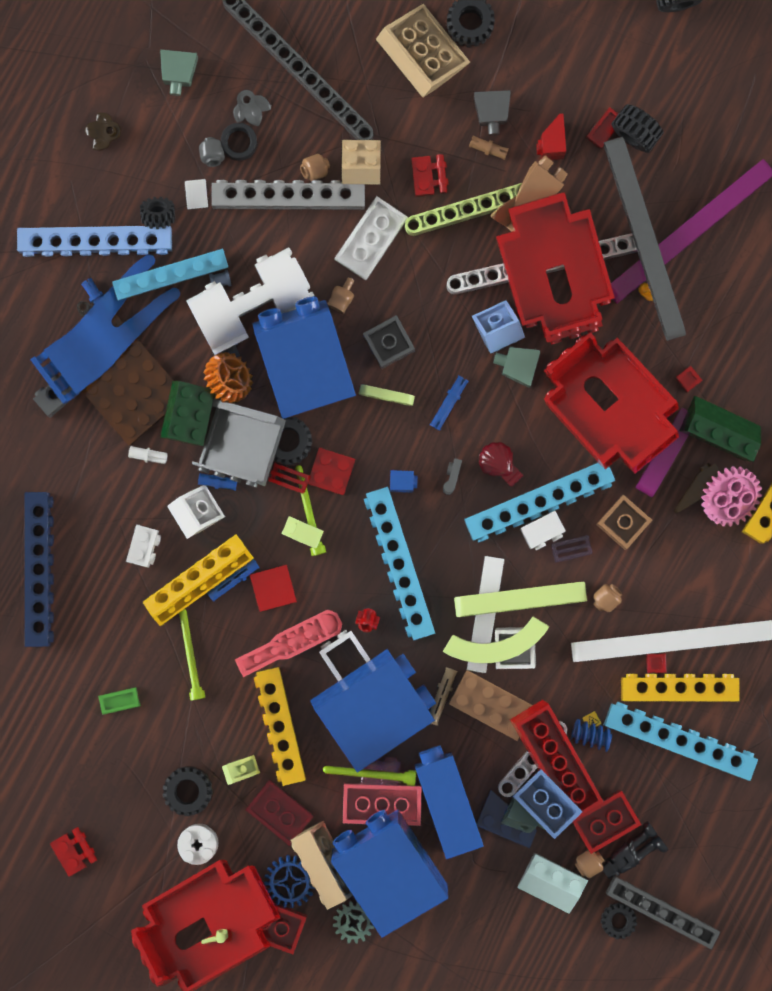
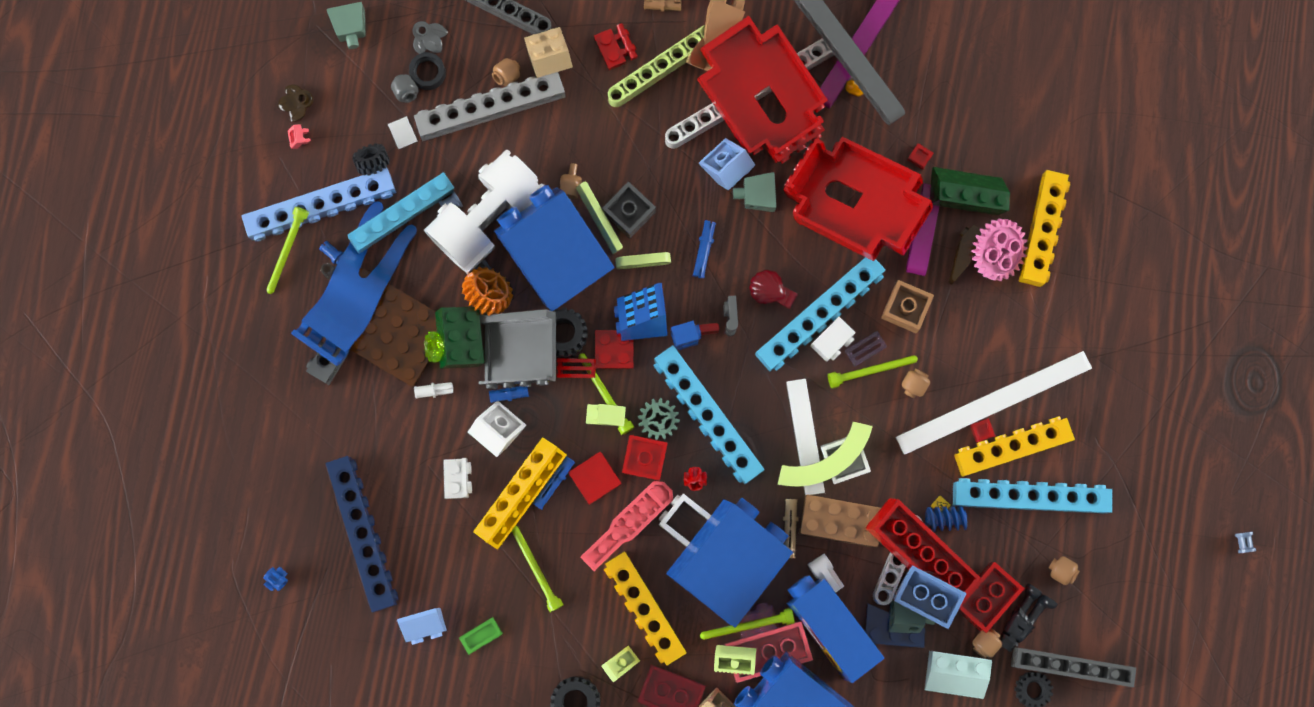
camera: 20 degrees left, 5 degrees down
(68, 673) = (422, 625): none -> light blue slope
(72, 246) = (298, 215): none -> lime piece
(92, 166) = (296, 136): none -> coral tile
(160, 415) = (433, 346): none -> clear neon green gear
(326, 584) = (644, 457): none -> red plate
(347, 801) = (735, 659): none -> yellowish green brick
(351, 543) = (656, 411): none -> sand green gear
(358, 340) = (599, 217): none -> yellowish green tile
(367, 447) = (641, 314): none -> blue slope
(371, 238) = (580, 121): white tile -> none
(427, 481) = (709, 328): none -> red tile
(460, 746) = (823, 569): none -> white piece
(520, 599) = (834, 411): yellowish green beam -> none
(533, 569) = (836, 379): none -> lime piece
(686, 820) = (1064, 570): none -> medium nougat head

